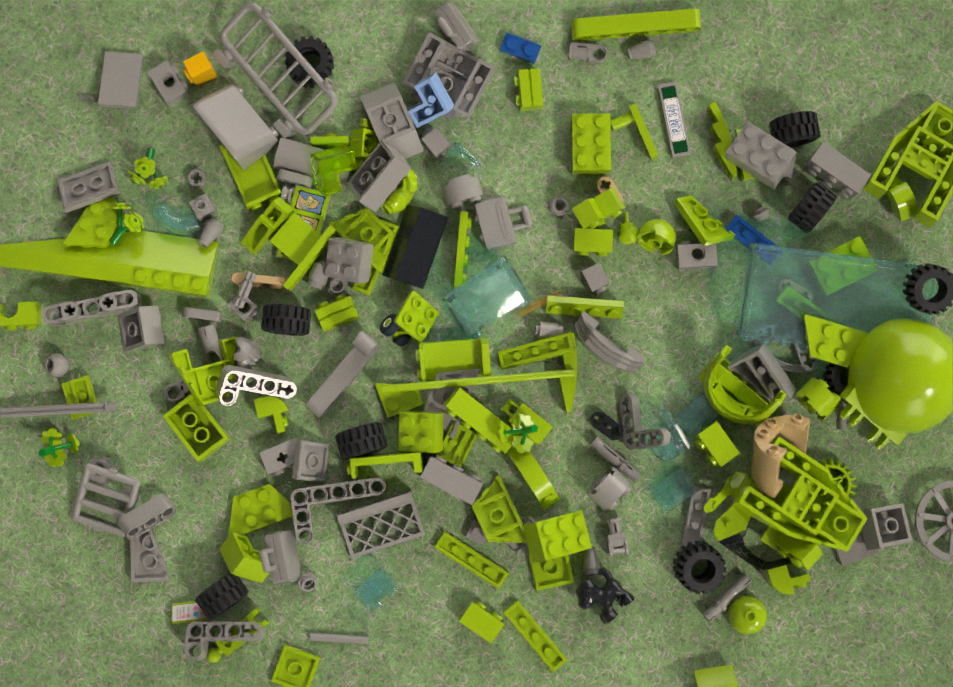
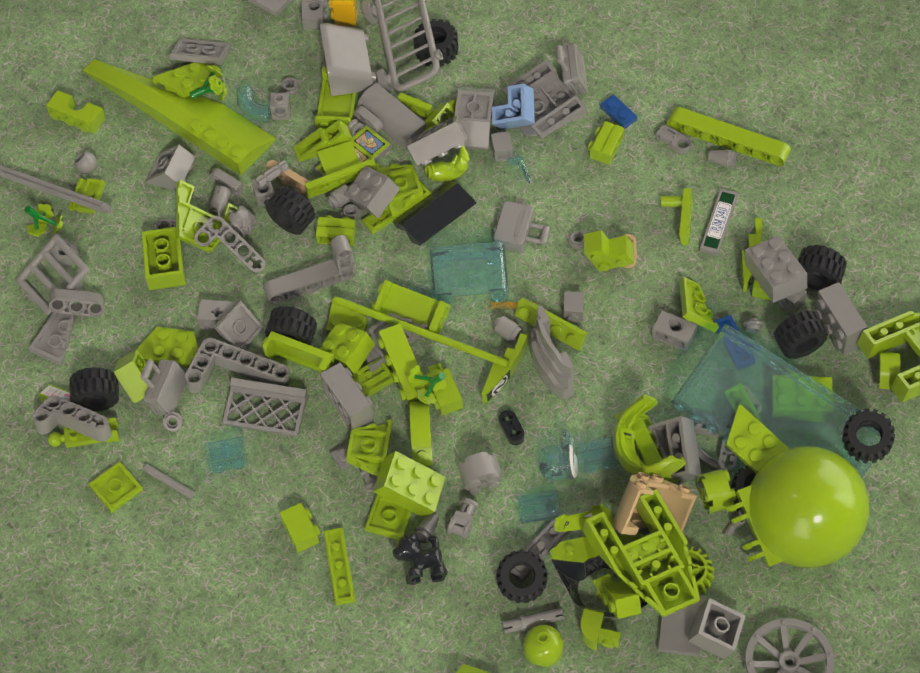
camera: 30 degrees right, 25 degrees down
(77, 312) = (131, 131): light grey piece -> none
(144, 168) = (253, 53): lime plant -> none
(210, 232) = (274, 125): light grey cone -> none
(273, 406) = (234, 274): lime brick -> none
(328, 166) = (398, 117): clear neon green panel -> none
(412, 320) = (398, 261): lime plate -> none
(461, 190) = (500, 185): light grey brick -> none
(463, 242) = (478, 225): lime plate -> none
(471, 560) = (324, 476): lime tile -> none
(536, 351) = (487, 335): lime tile -> none
(591, 143) = (633, 204): lime brick -> none
(593, 241) = (589, 276): lime brick -> none
(618, 461) = (505, 463): light grey pin -> none
(628, 232) = (625, 286): lime piece -> none
(635, 431) = (535, 441): light grey beam -> none
(657, 235) = (645, 294): lime cylinder -> none
(715, 445) = (598, 481): lime brick -> none

